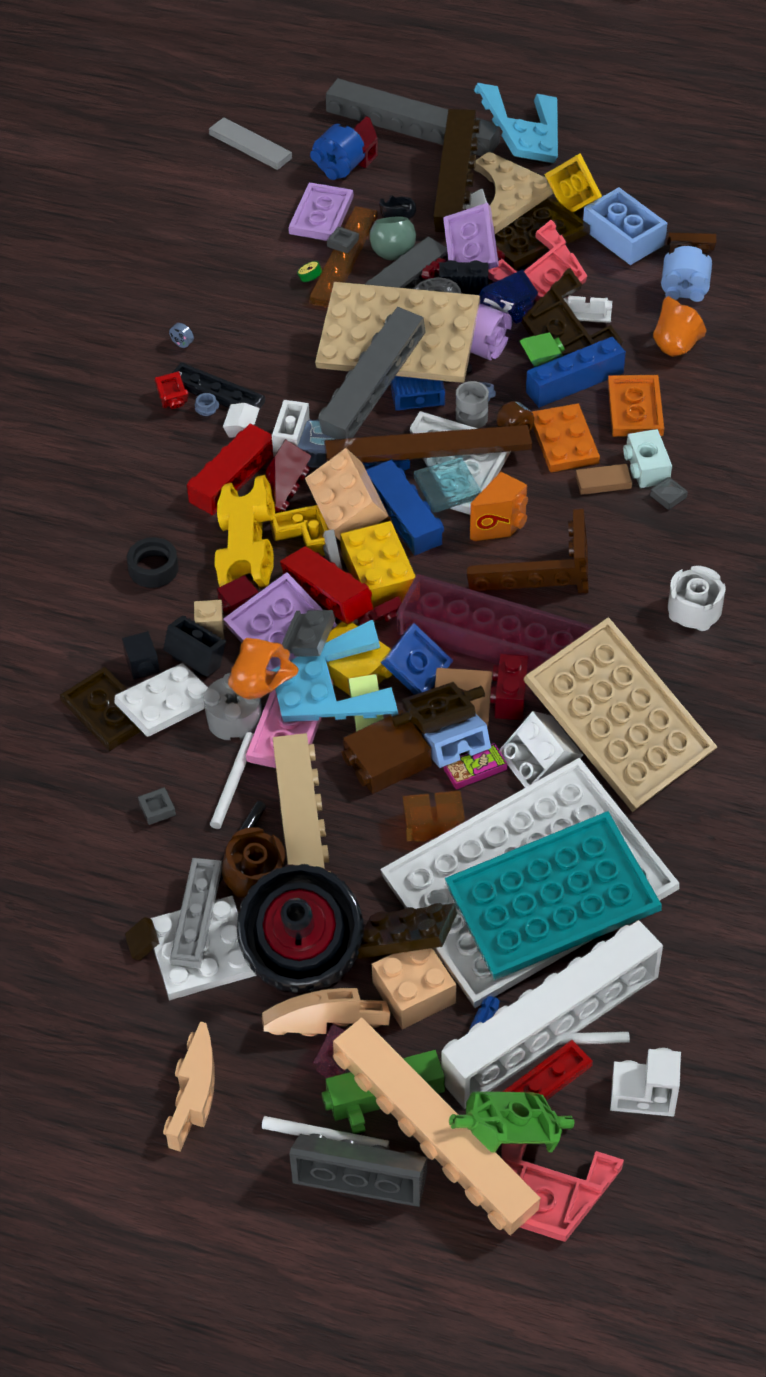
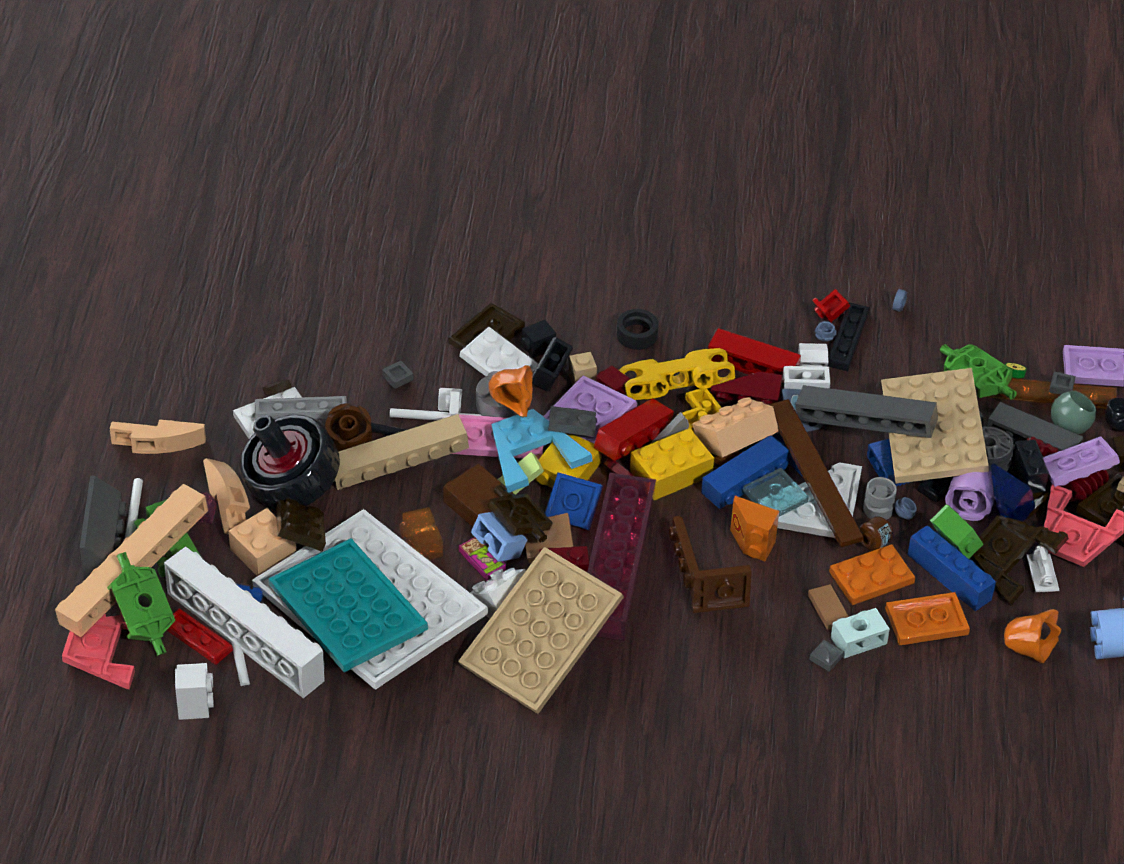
camera: 75 degrees right, 5 degrees down
(223, 751) = (450, 400): none -> white bracket
(290, 304) = (988, 373): none -> bright green plate
(696, 597) = (695, 678): white brick -> none

